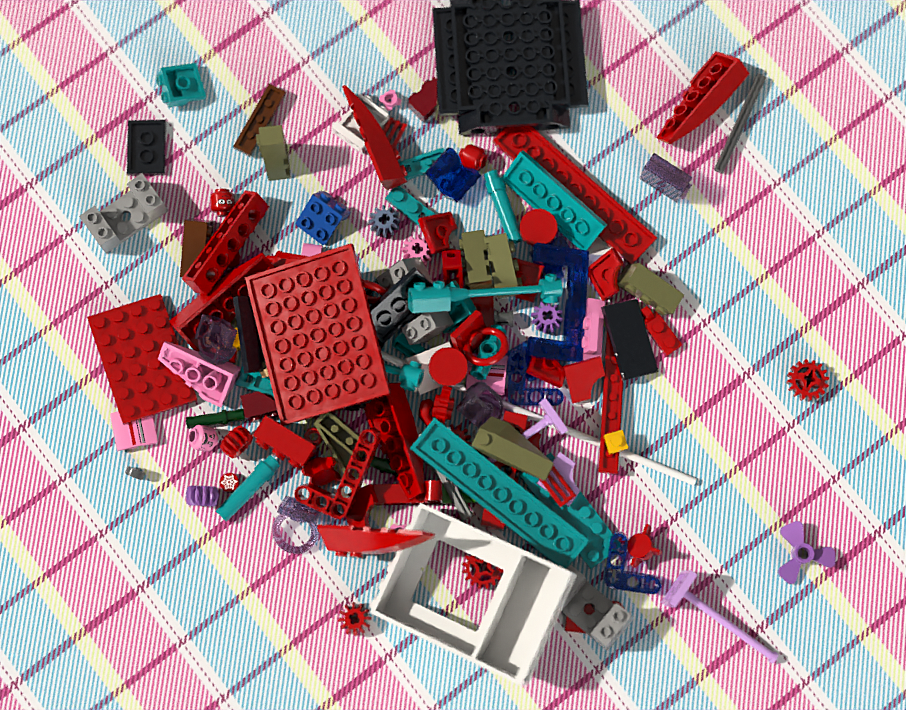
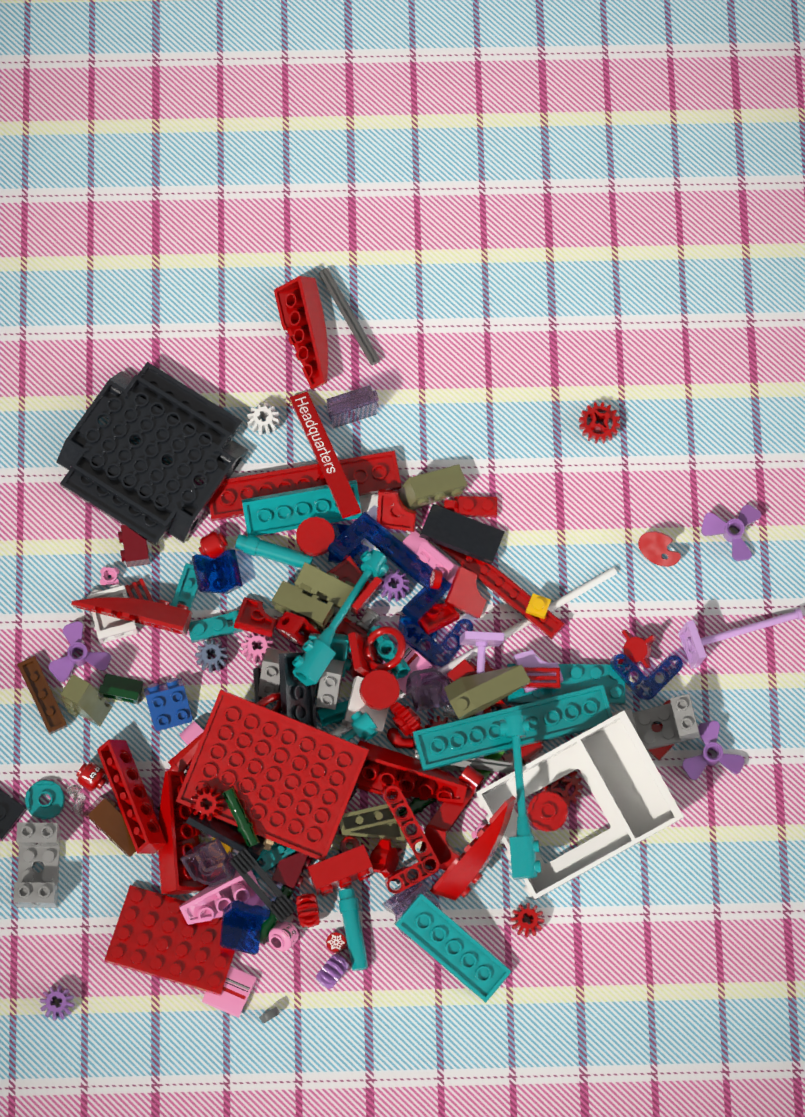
camera: 55 degrees left, 5 degrees down
(33, 300) = (52, 1009): none -> medium lavender gear
(183, 193) = (53, 808): none -> teal tile
(184, 401) = (242, 926): none -> clear blue bracket
(201, 205) = (78, 796): none -> clear arm
(222, 419) = (243, 863): none -> black container
(264, 300) = (203, 808): none -> red gear
(266, 335) = (240, 817): none -> dark green pin
(286, 576) = (452, 947): none -> teal plate
(291, 119) = (62, 667): none -> medium lavender piece
(309, 174) = (121, 688): none -> dark green panel
(402, 572) = (523, 847): none -> teal bar
(445, 571) = (547, 811): none -> red tile
(512, 301) = (365, 596): none -> red tile
(574, 345) = (436, 579): none -> red tile
(581, 664) = (695, 765): none -> medium lavender piece
(601, 113) = (256, 421): none -> white gear
(609, 186) = (325, 455): none -> red tile
(739, 498) = (654, 544): none -> piece

